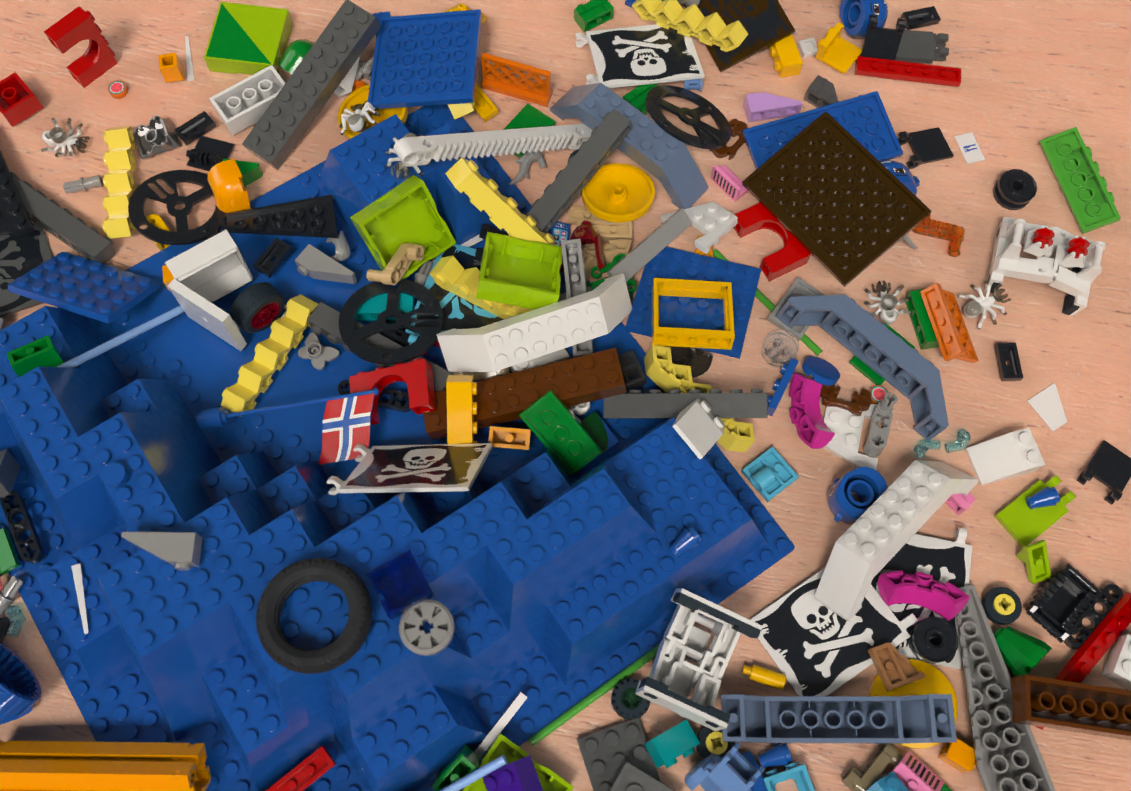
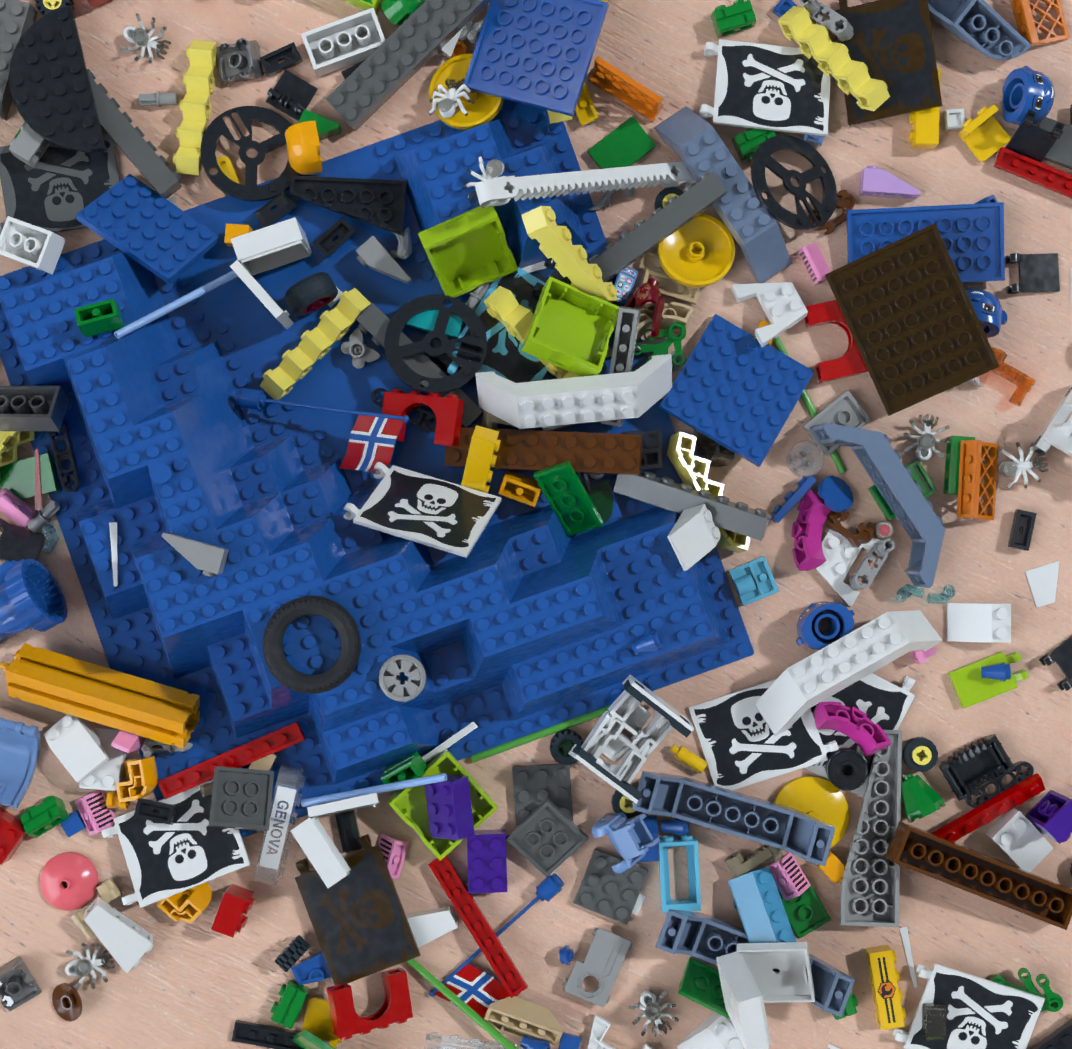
camera: 15 degrees right, 20 degrees up
(397, 265) = (448, 293): tan beam -> none
(400, 584) = (389, 638): clear blue piece -> none
(651, 245) = (710, 322): light grey tile -> none
(671, 744) = (590, 795): teal brick -> none
(693, 337) = (718, 440): yellow window -> none
(821, 93) = (947, 185): flat silver slope -> none
(893, 667) = (801, 783): medium nougat wing -> none
(1036, 561) = (966, 726): lime slope -> none

